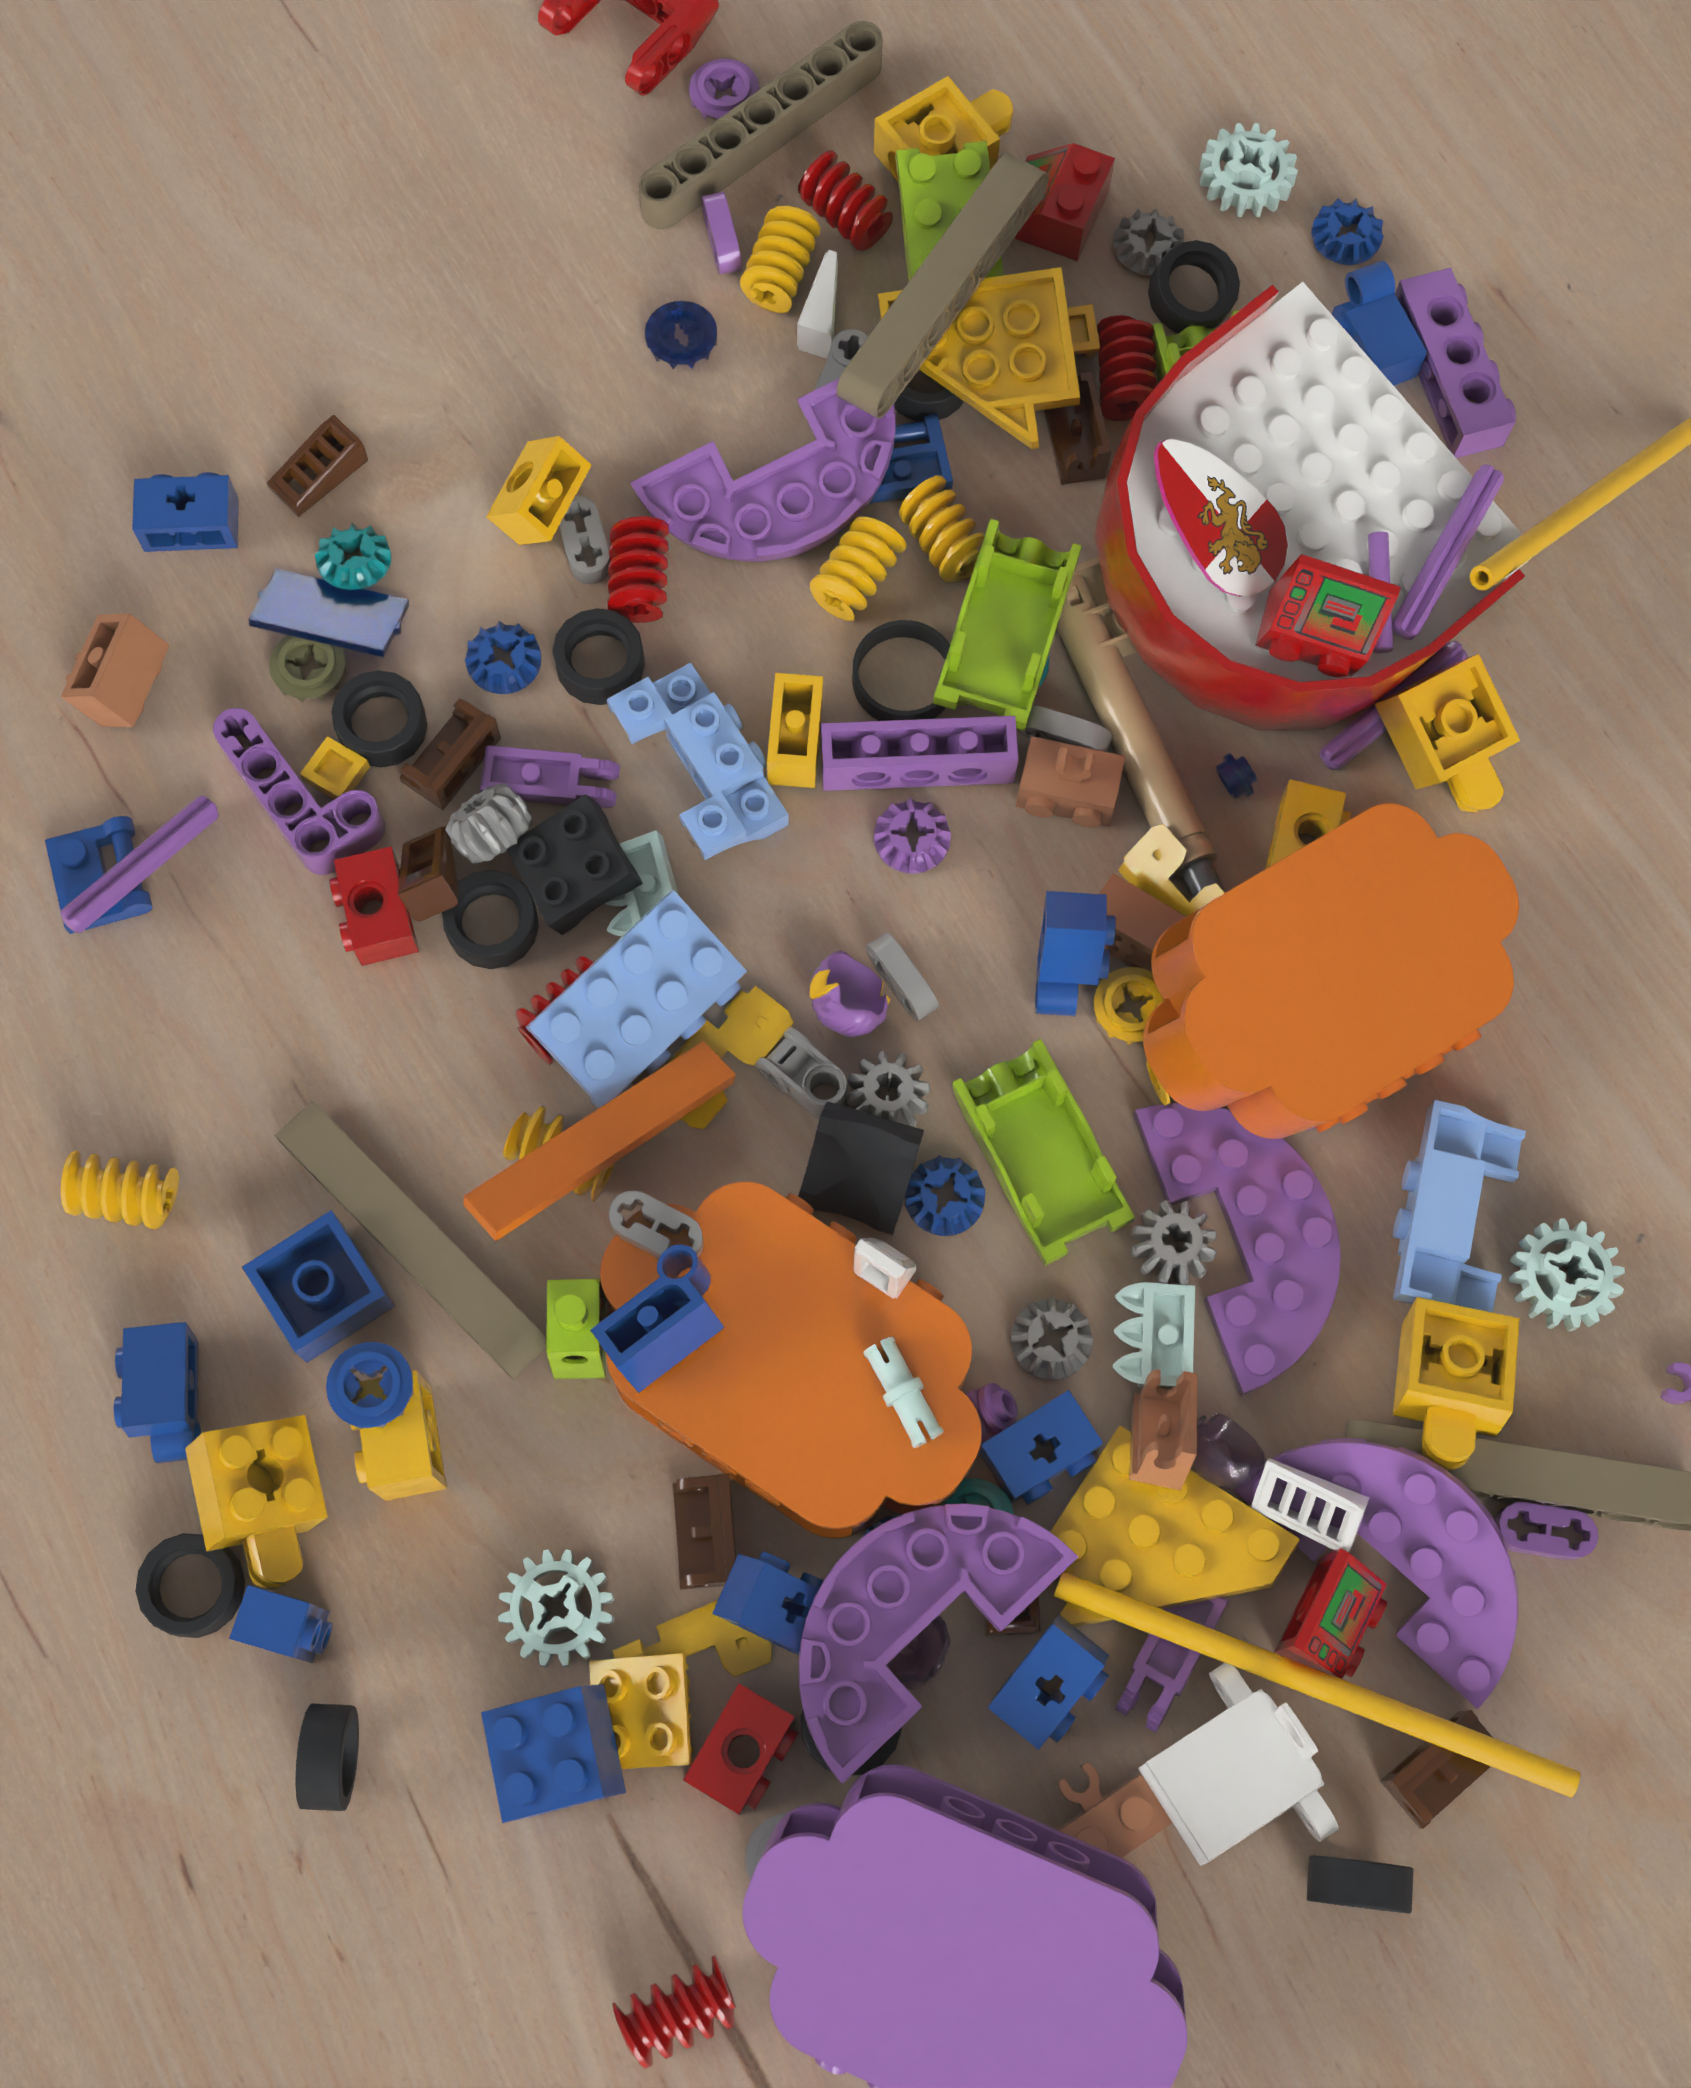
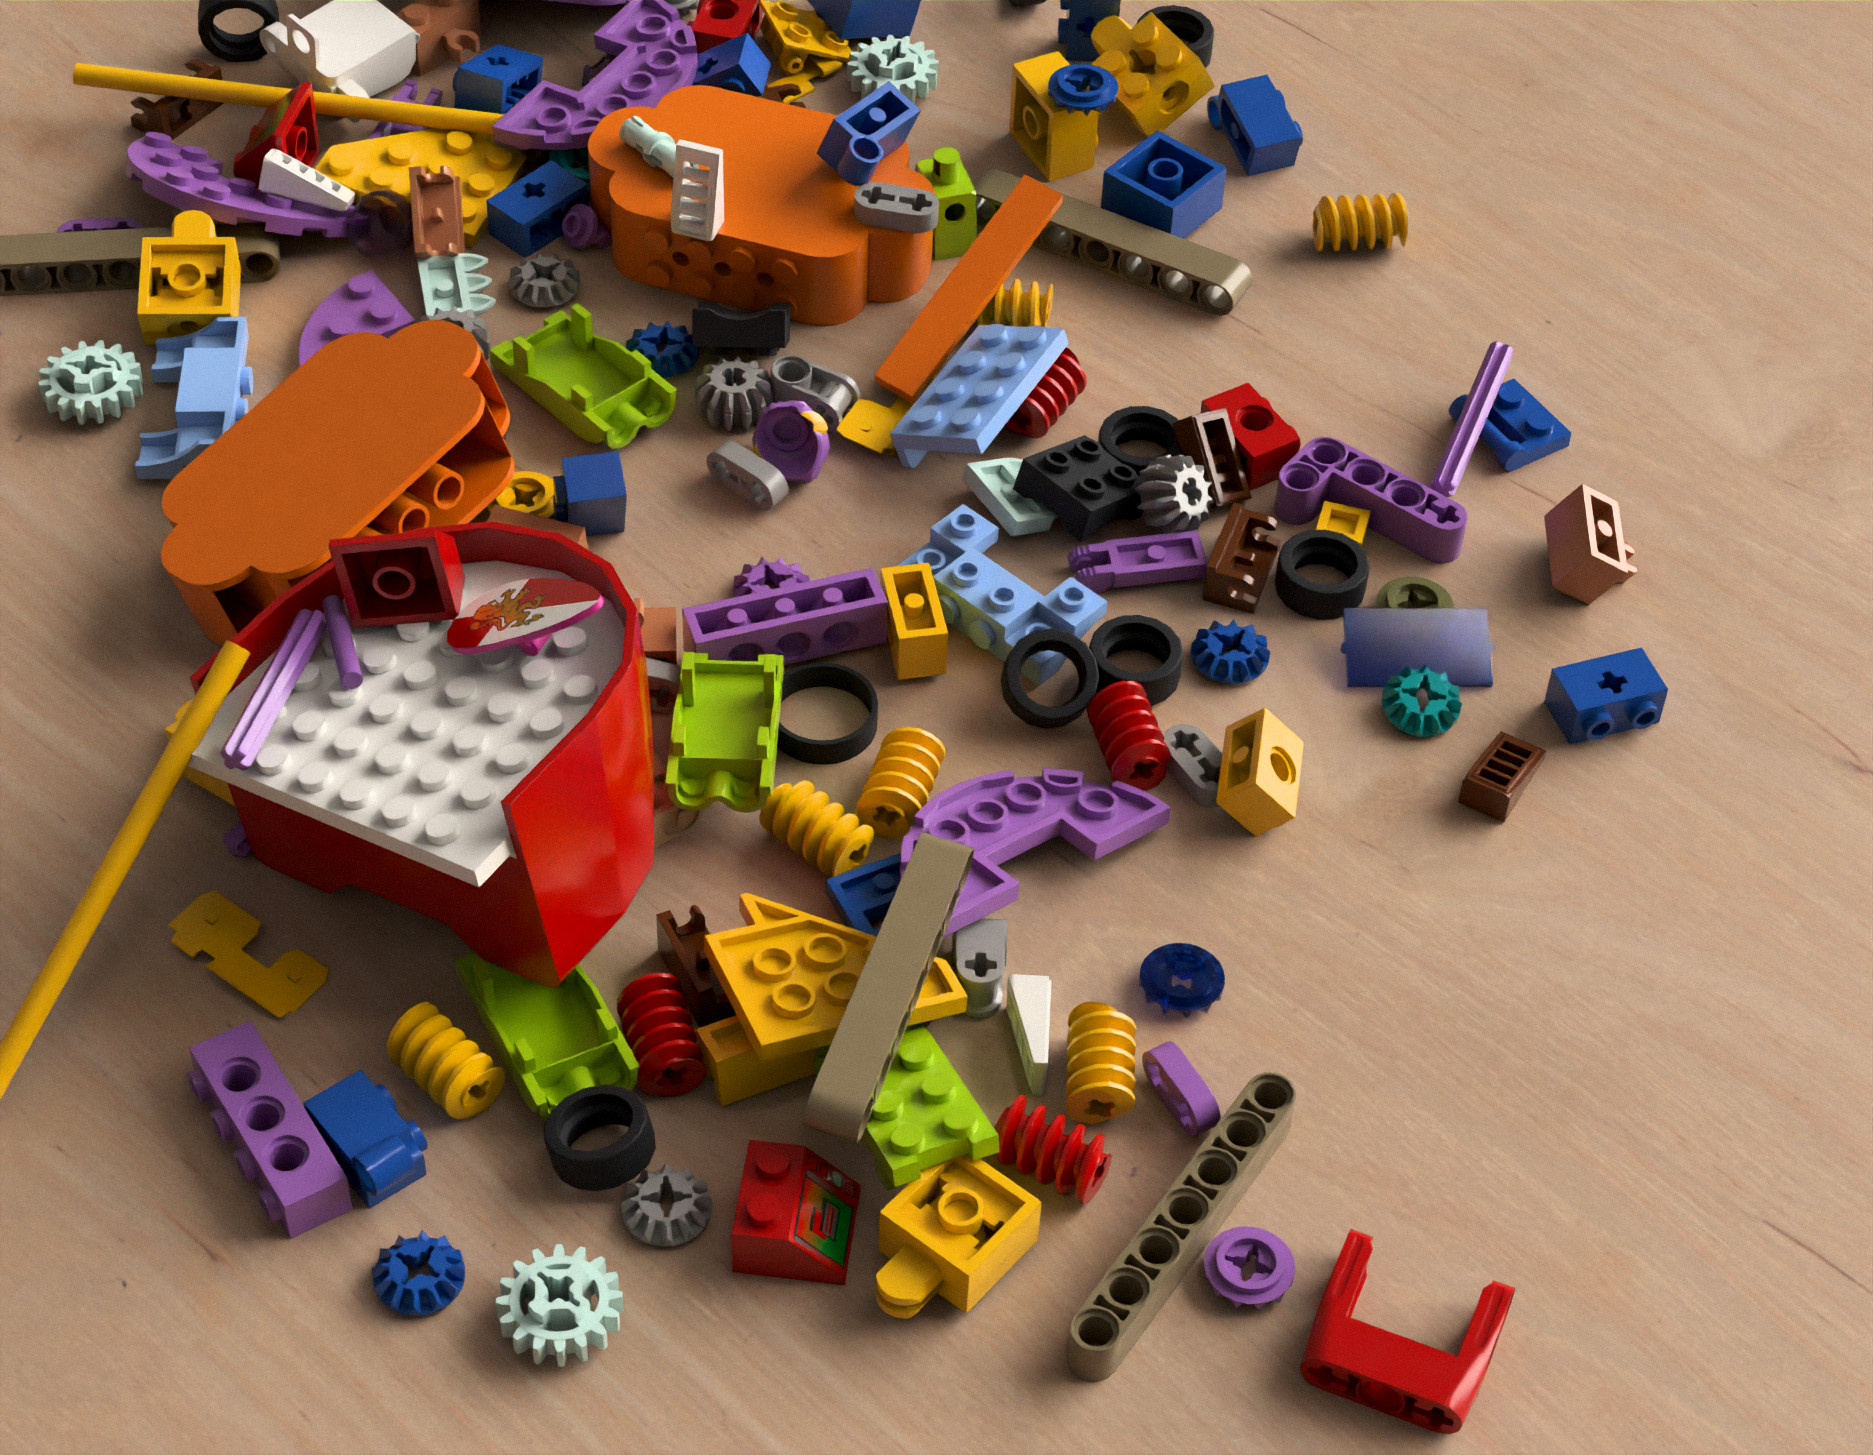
camera: 165 degrees right, 25 degrees down
(692, 613) = (1070, 647): none -> black tyre

